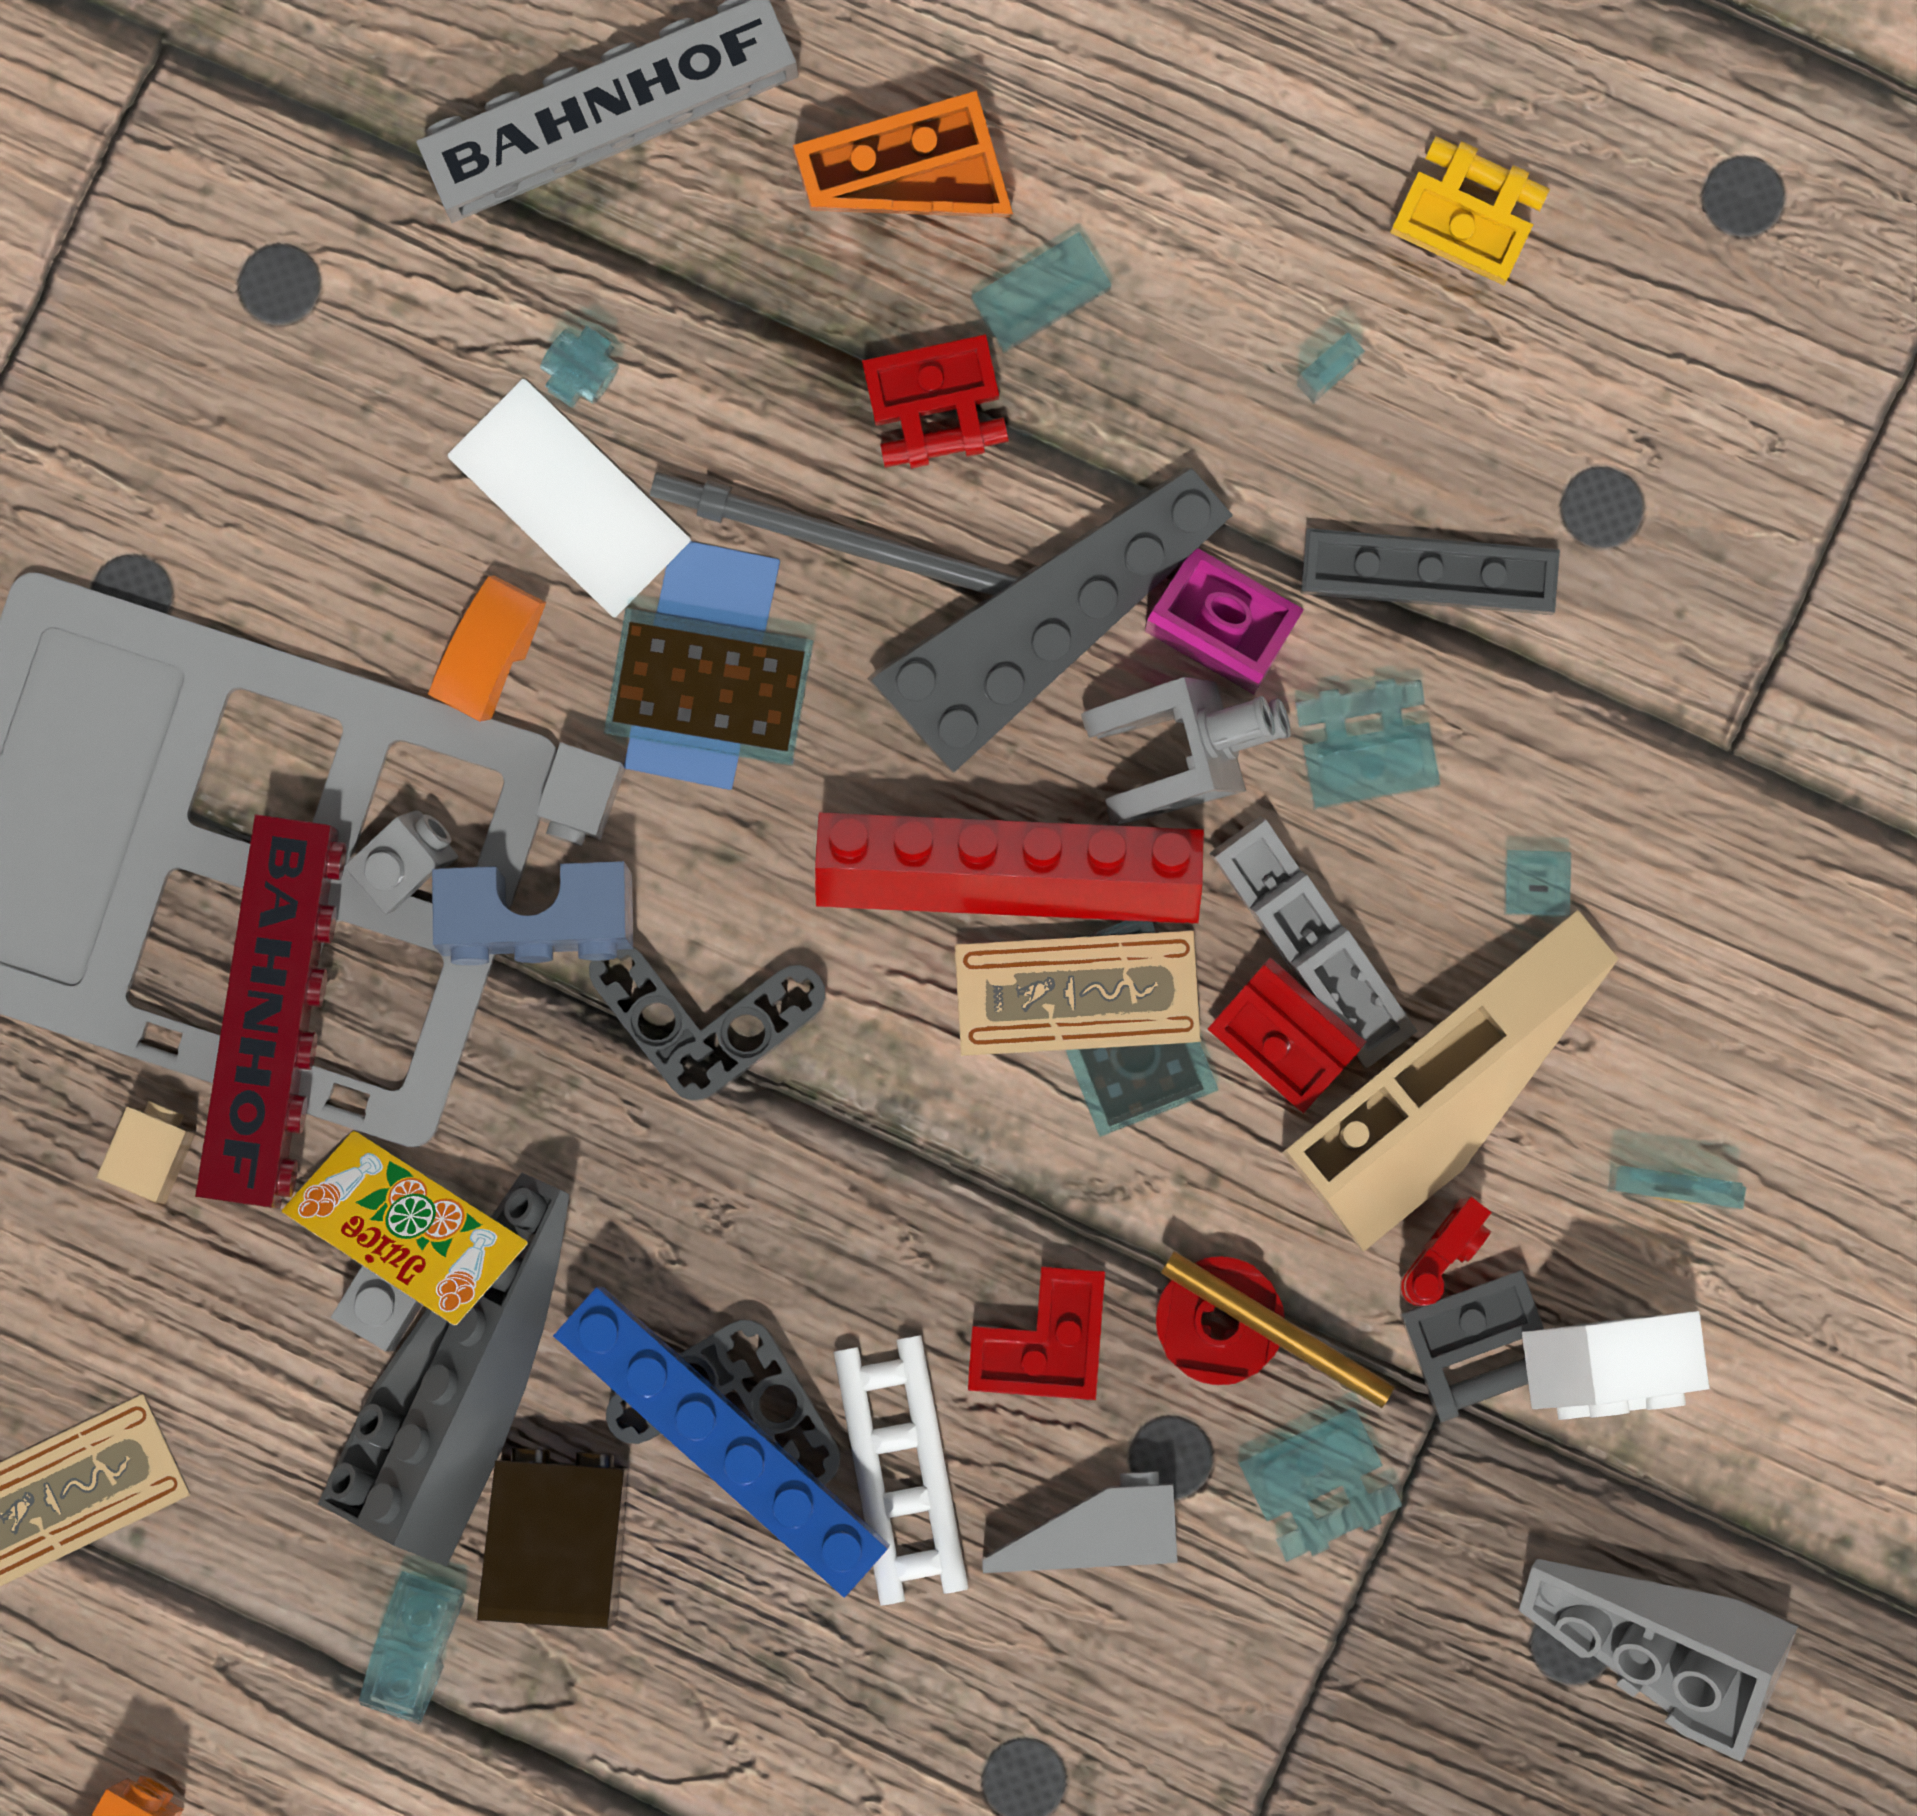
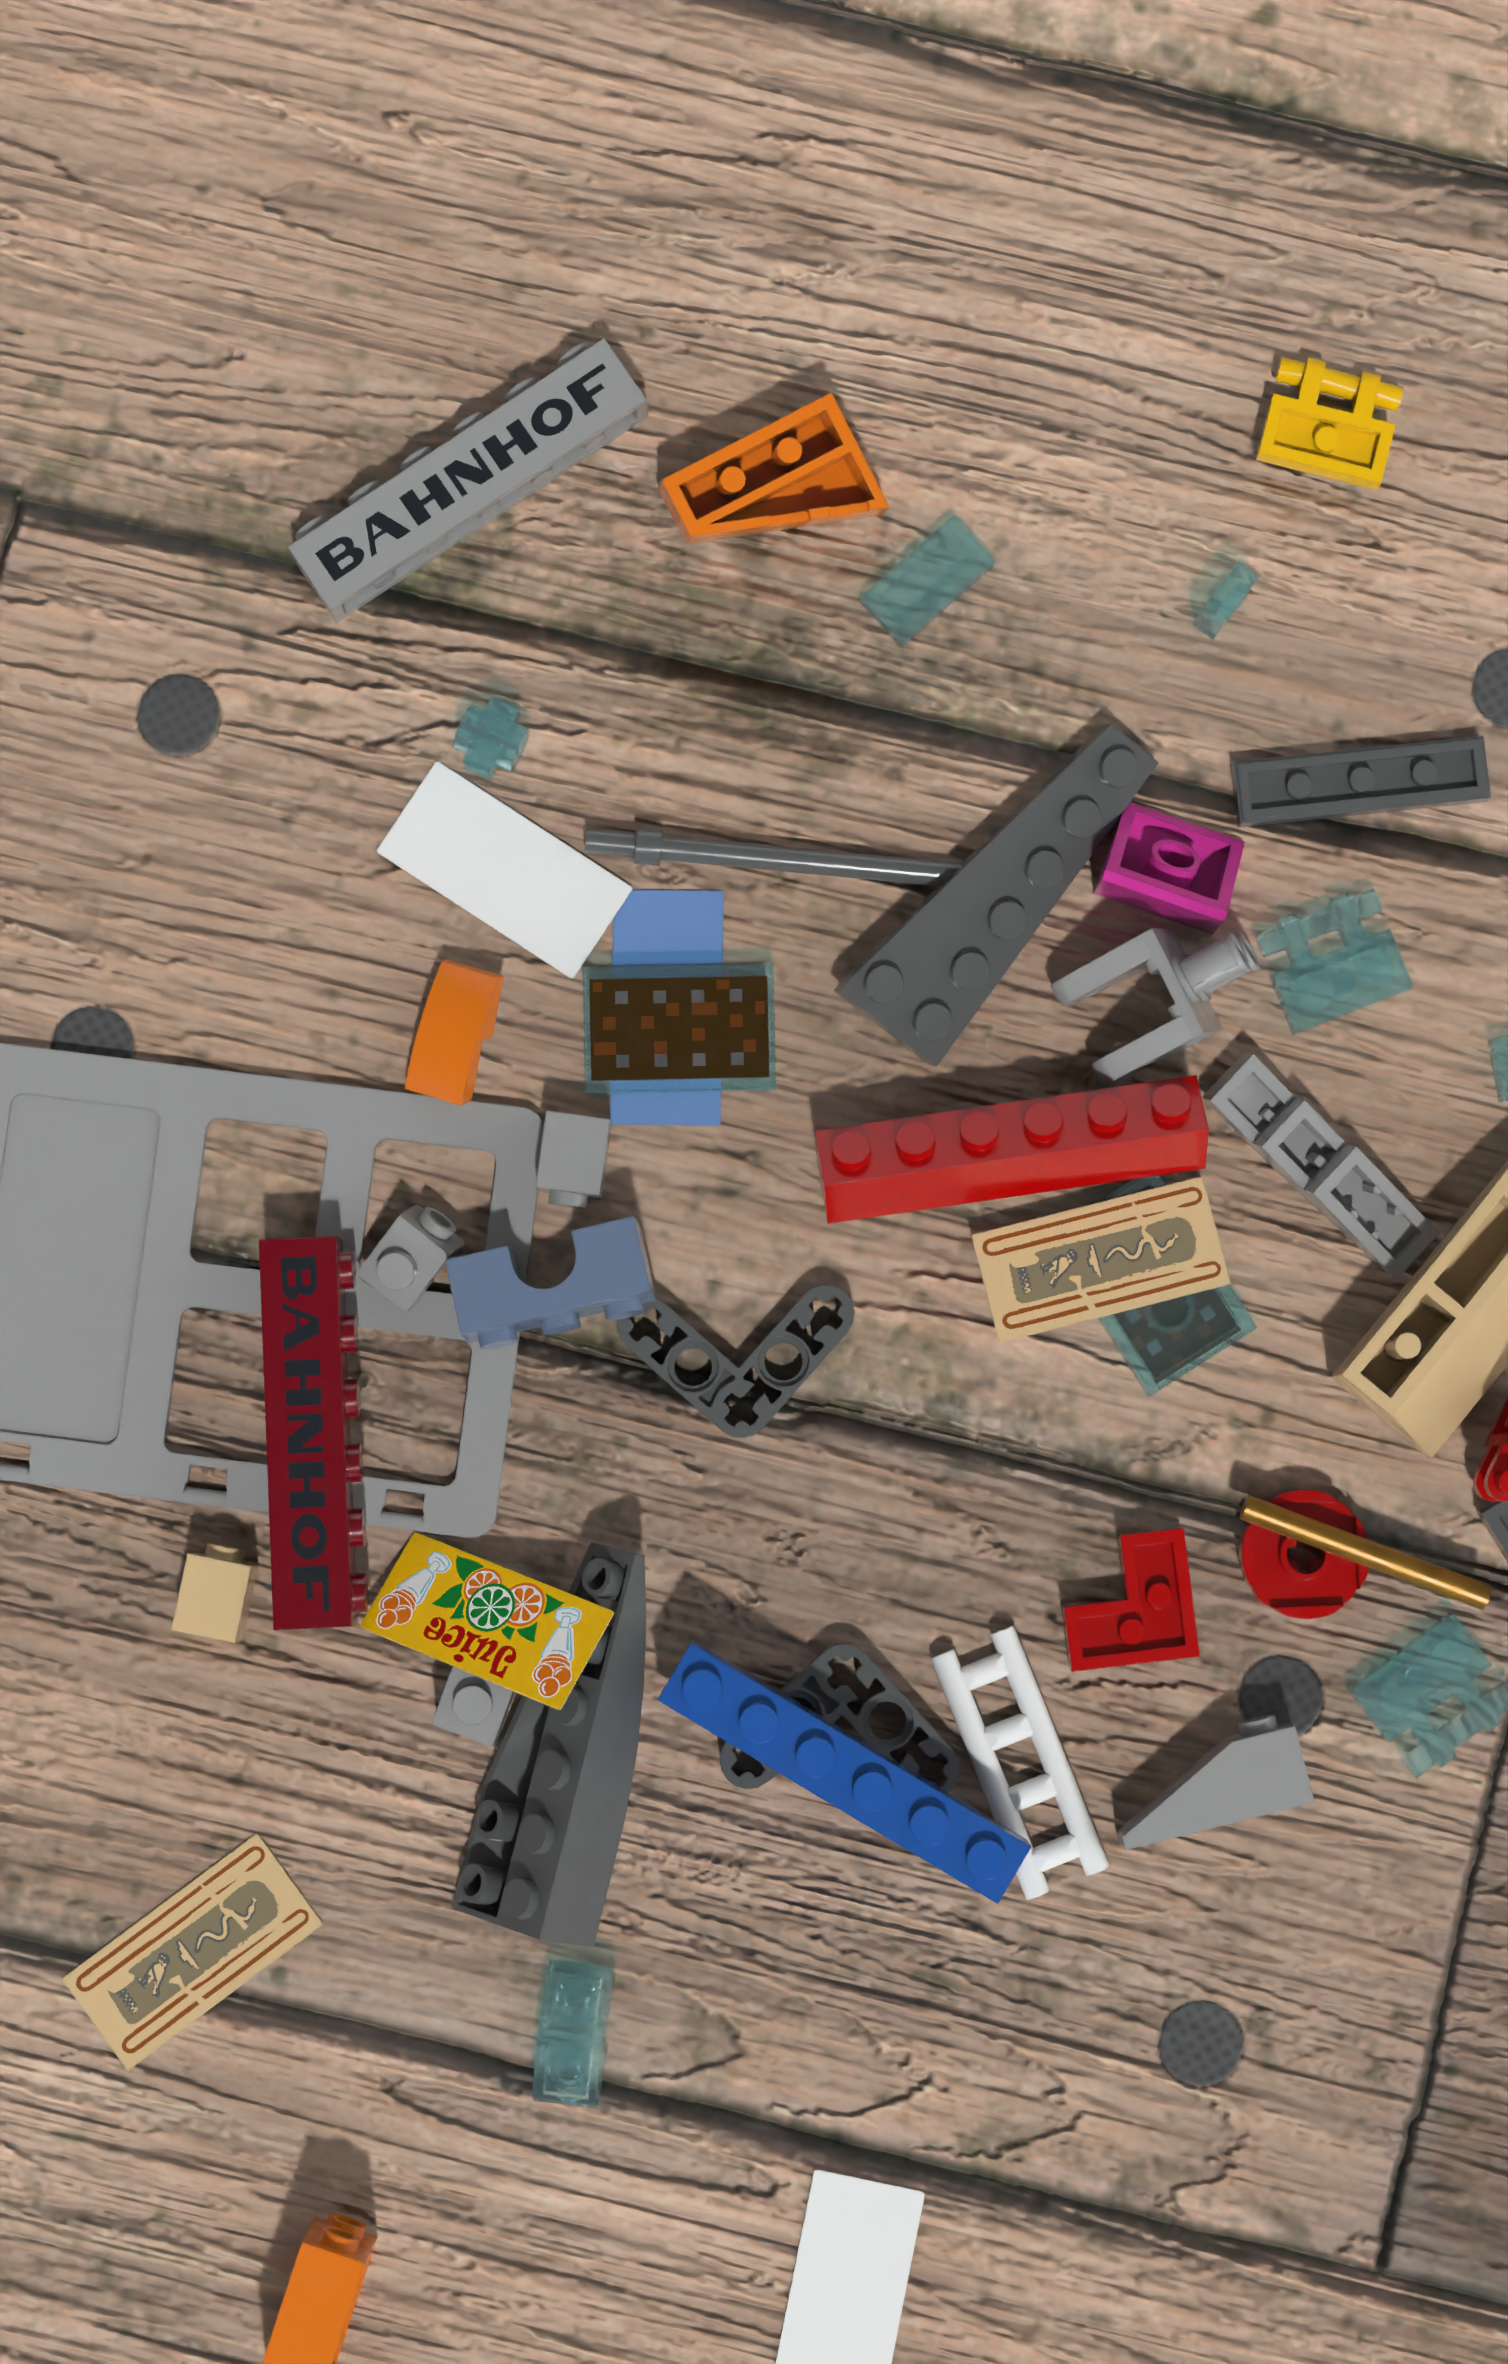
camera: 20 degrees left, 0 degrees up
(554, 1541) = (695, 1902): dark brown slope -> none
(933, 382) = (837, 689): red plate -> none
(1287, 1035) = (1315, 1261): red plate -> none

